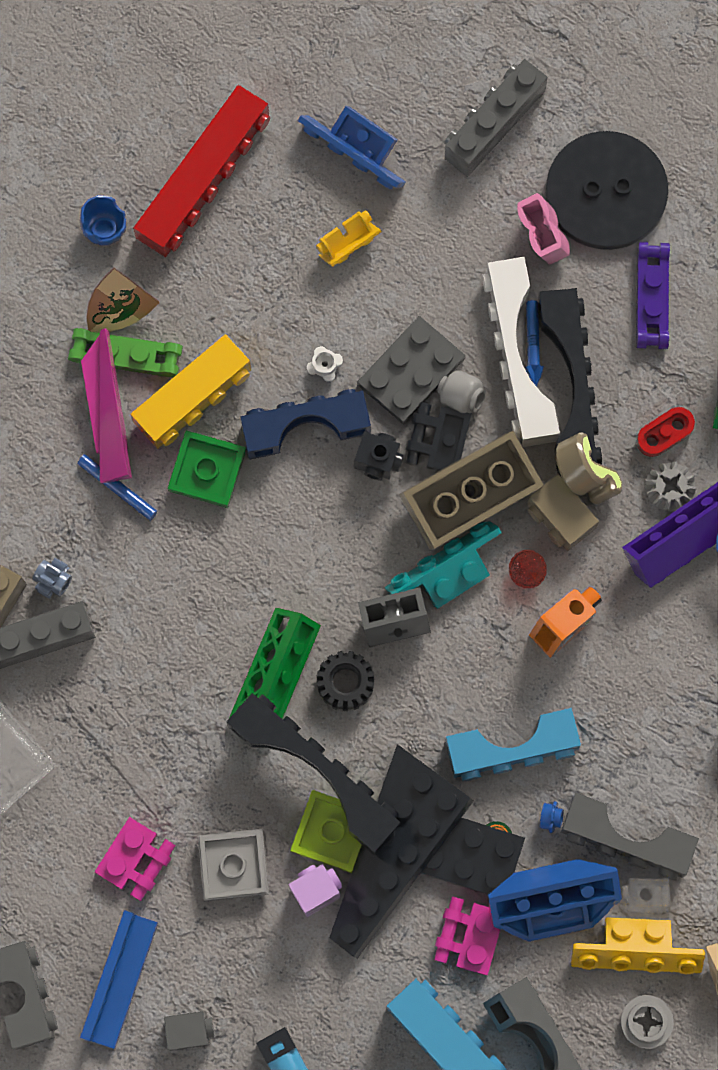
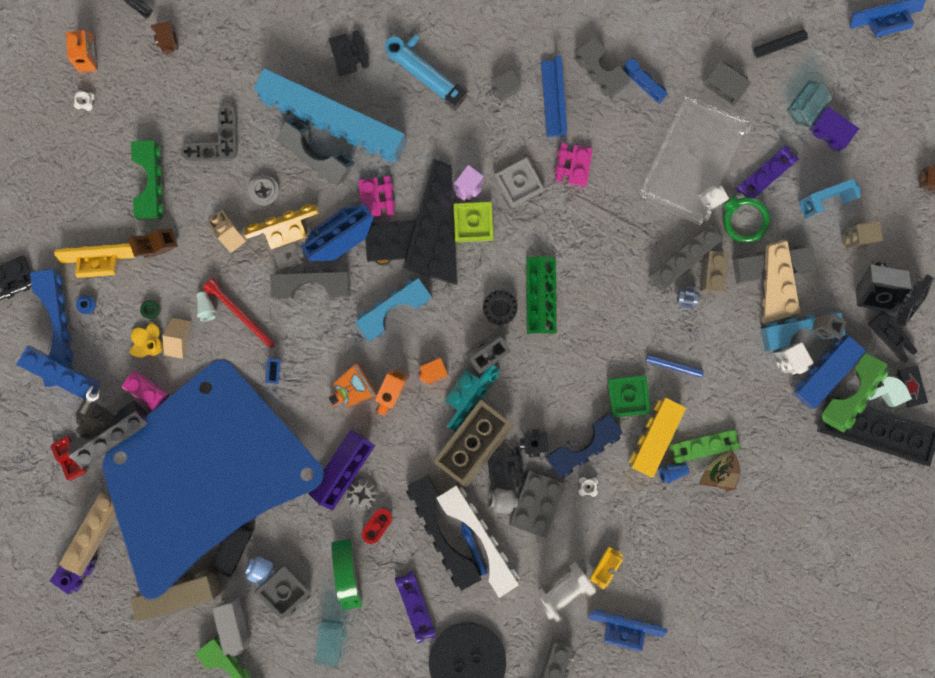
camera: 155 degrees right, 10 degrees up
(102, 220) = (754, 519): blue hair -> none
(106, 410) = (701, 406): dark pink wedge -> none
(190, 334) = (671, 472): none -> blue cone
(202, 171) = (709, 575): red brick -> none
(263, 728) = (456, 231): black arch -> none
(422, 222) = (566, 591): none -> white fence
(489, 624) = (432, 371): none -> orange brick
(527, 569) = (424, 412): clear red hat -> none
(543, 229) = (498, 624): bright pink brick -> none
(551, 817) = (357, 278): blue plate -> none
(561, 513) = (416, 452): dark tan brick -> none
(582, 473) = (413, 477): dark tan animal -> none
(623, 649) = (352, 387): none -> orange torso

